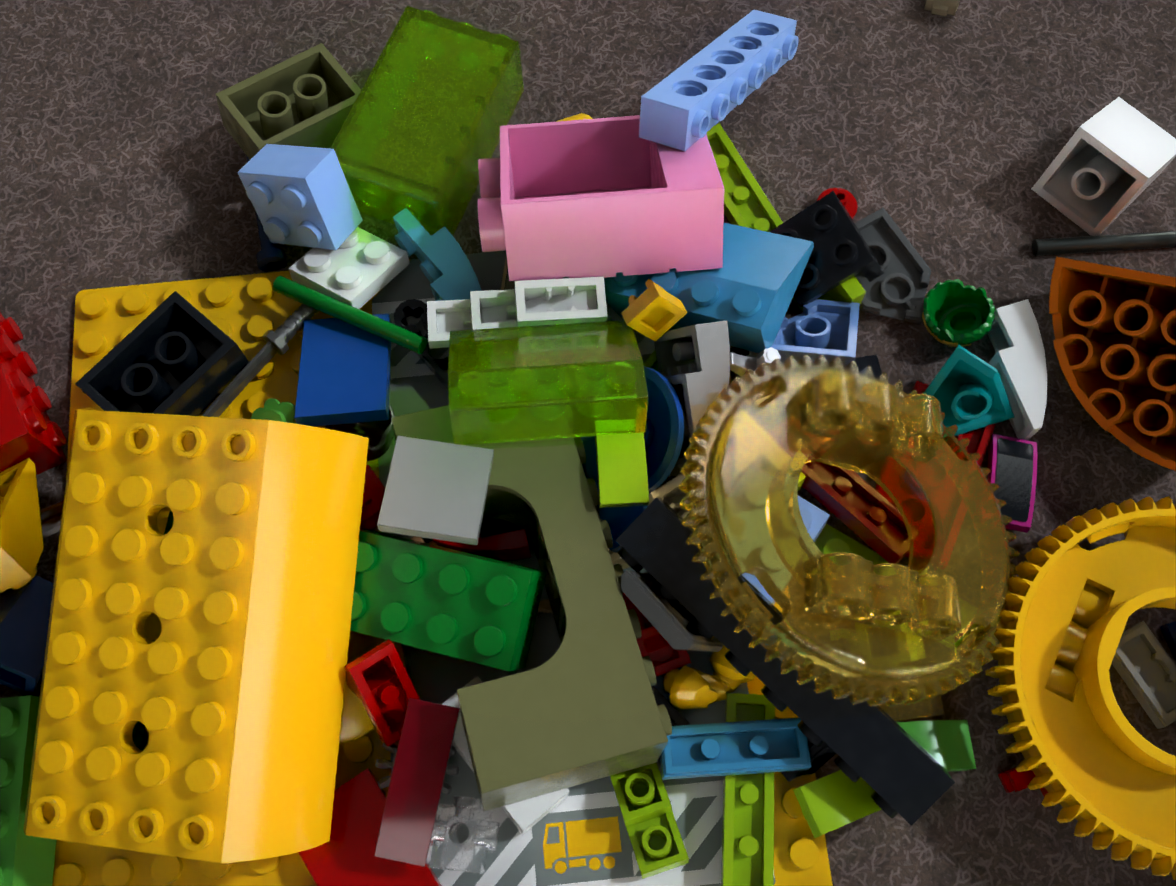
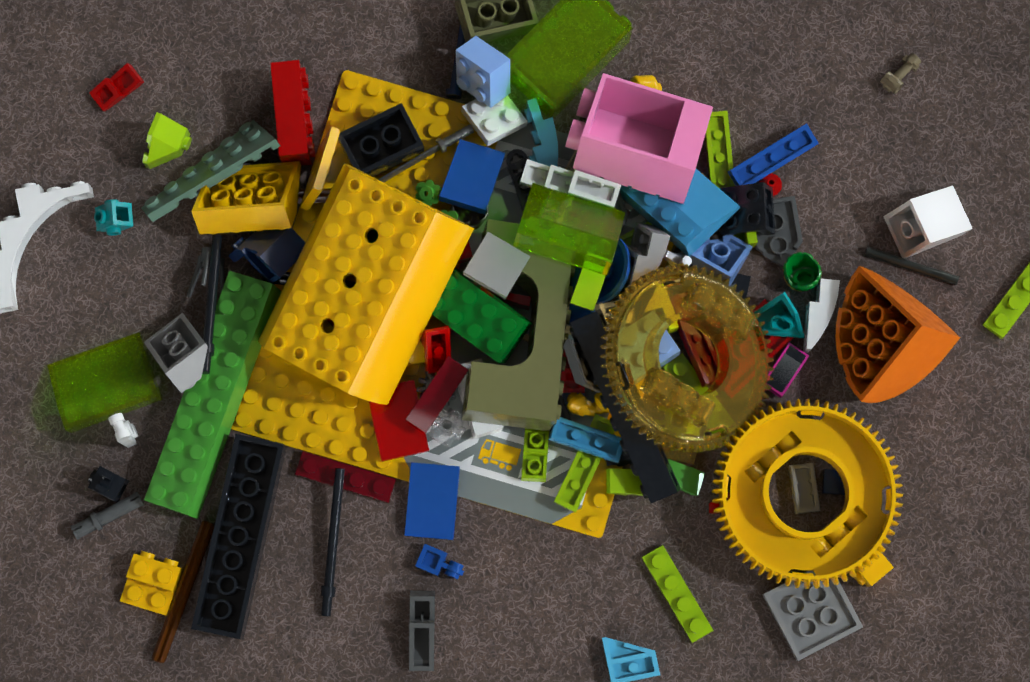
camera: 15 degrees right, 10 degrees up
(56, 448) = (320, 168): none -> yellow tile
(350, 314) = (484, 147): green bar -> none
(653, 311) = (638, 214): yellow tile -> none
(716, 80) = (733, 92): light blue brick -> none
(823, 160) = (773, 156): none -> blue plate

